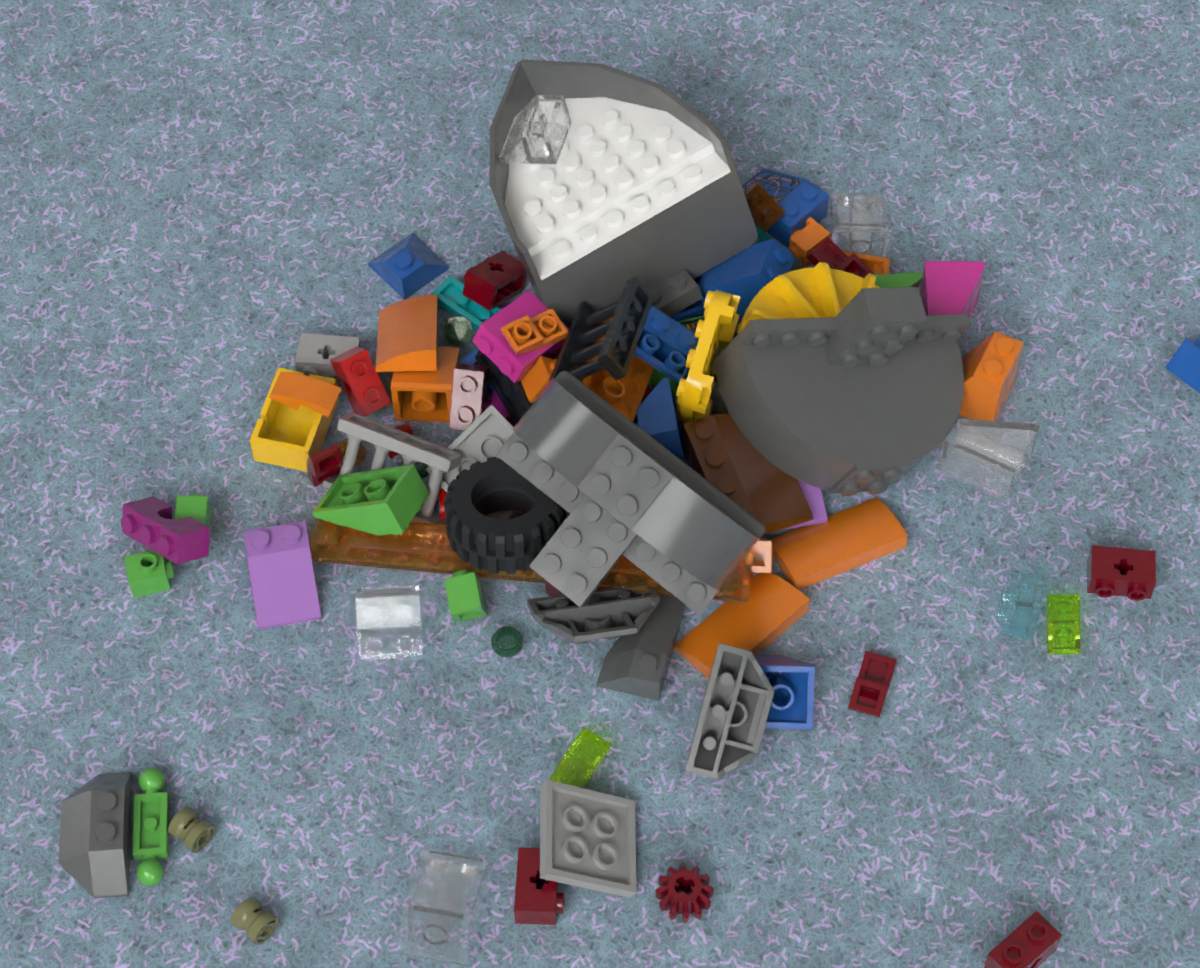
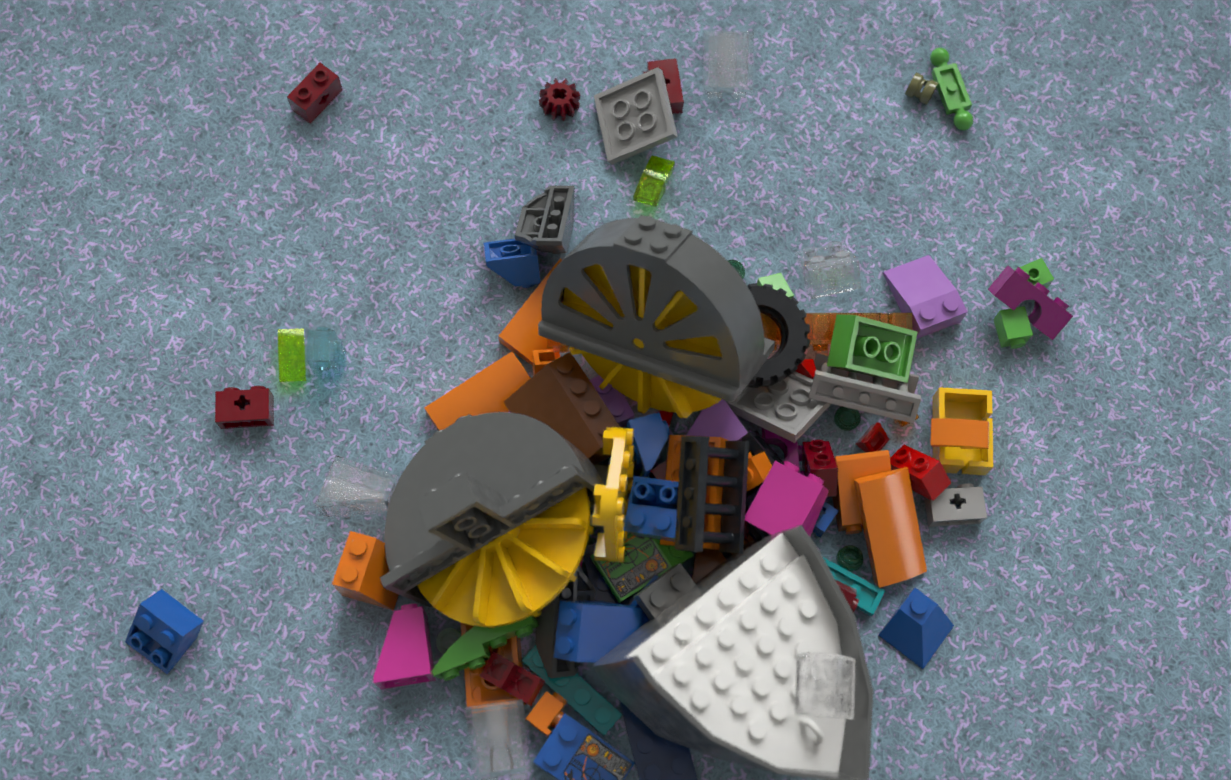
camera: 165 degrees right, 15 degrees up
(97, 835) = (988, 81): dark grey wedge -> none
(254, 920) = (855, 34): olive wheel -> none
(324, 464) = (925, 385): dark red slope -> none
(534, 333) = (775, 493): orange slope -> none
(762, 206) = (607, 717): reddish brown bracket -> none
(872, 684) = (441, 283): dark red slope -> none

